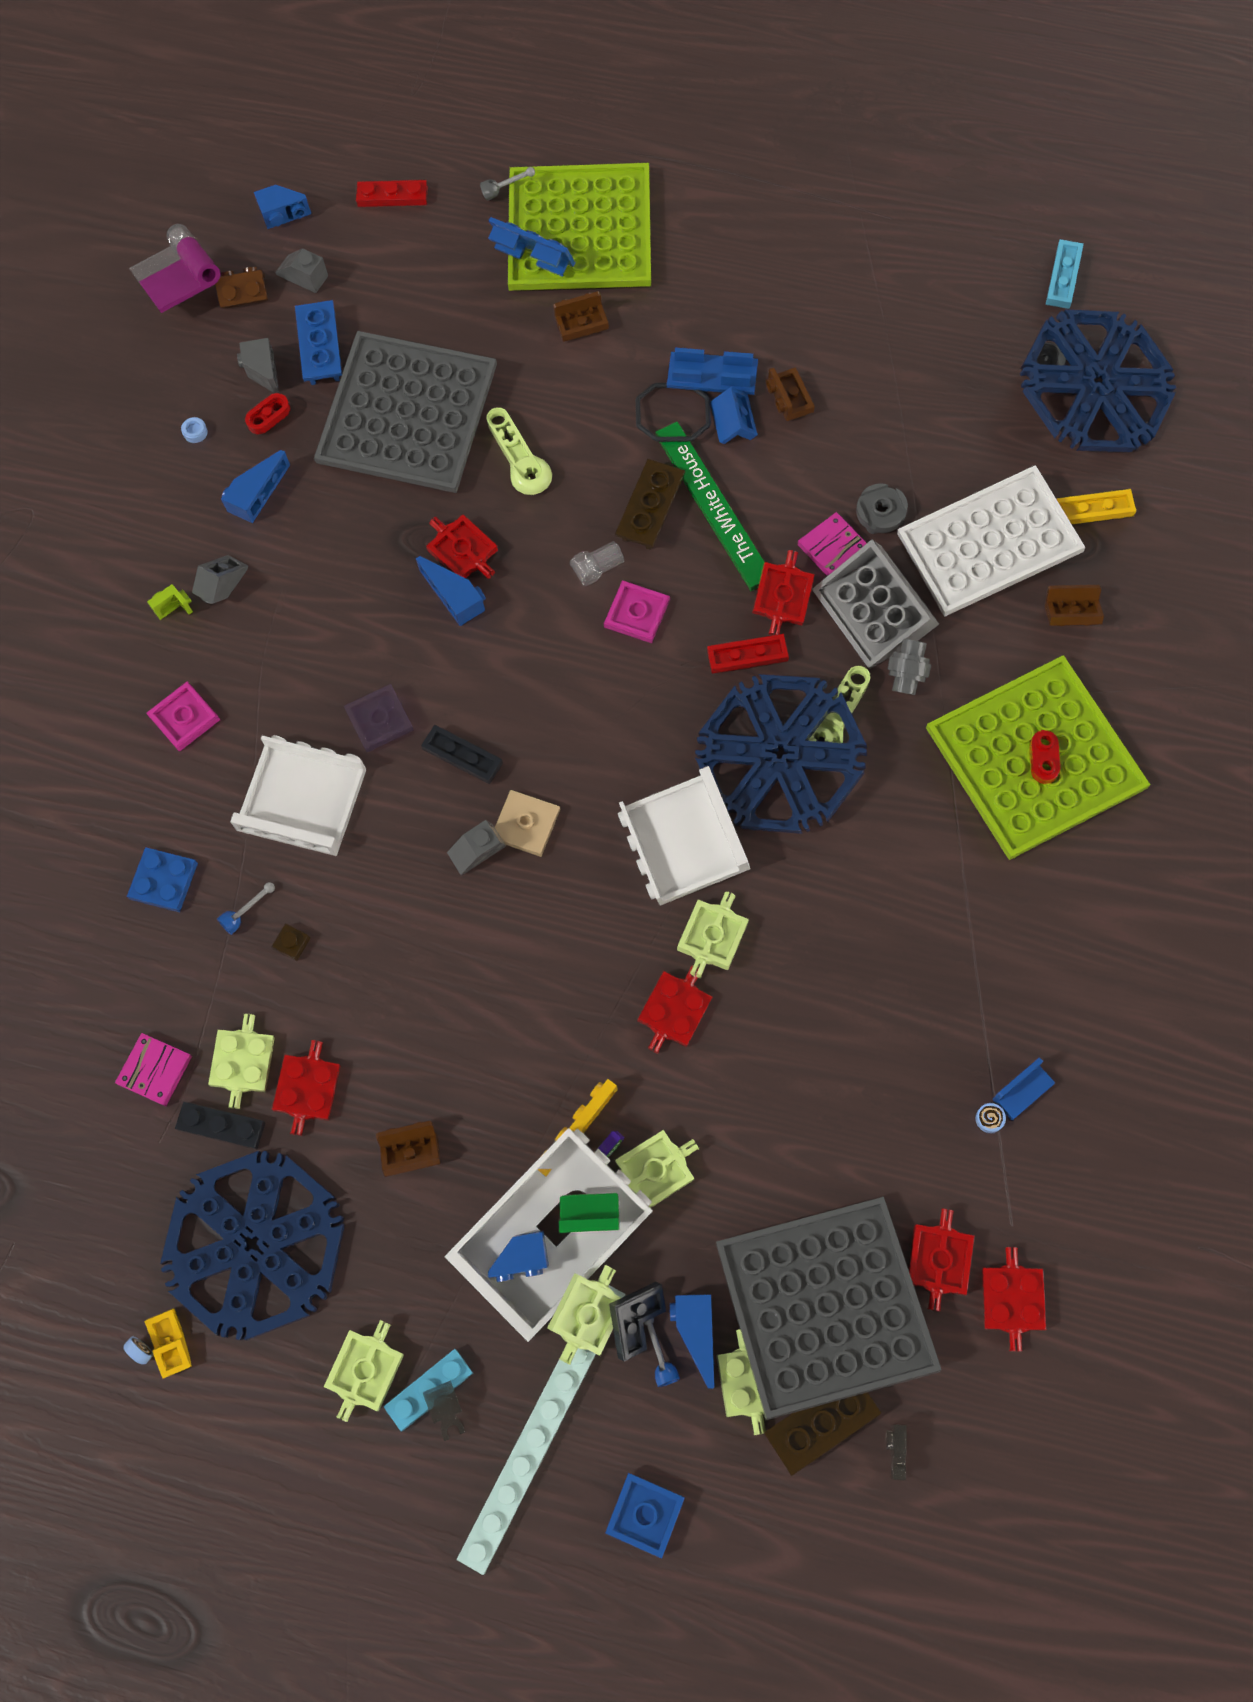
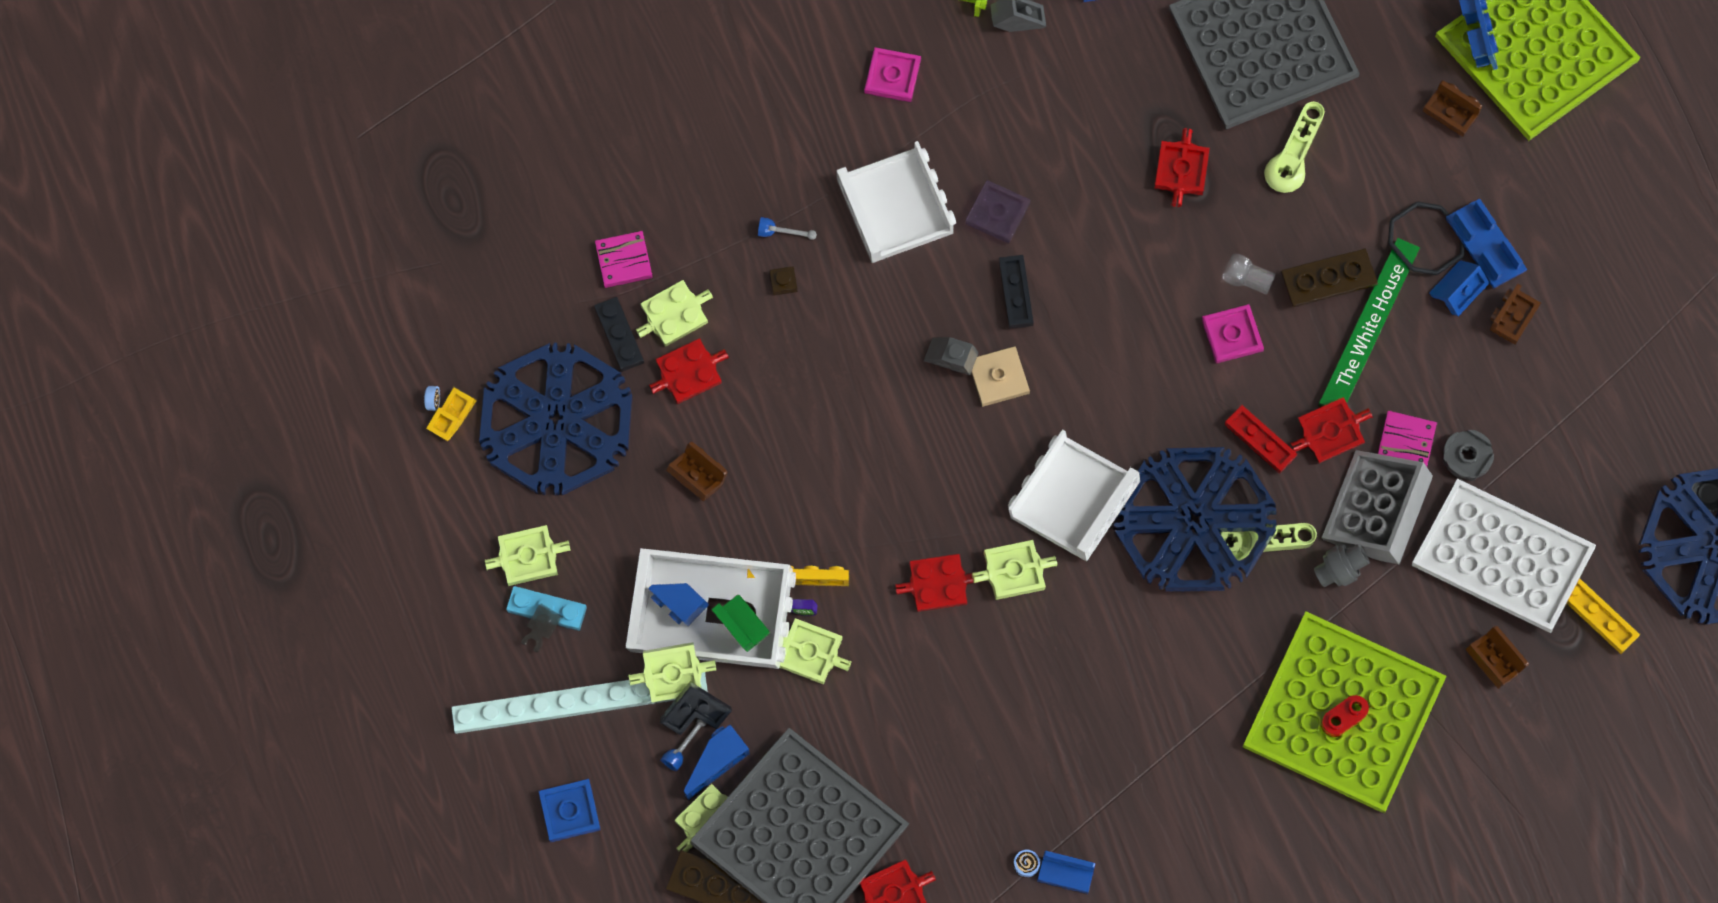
camera: 50 degrees right, 0 degrees up
(162, 879) = (761, 157): blue plate -> none
(453, 590) = (1140, 192): blue slope -> none

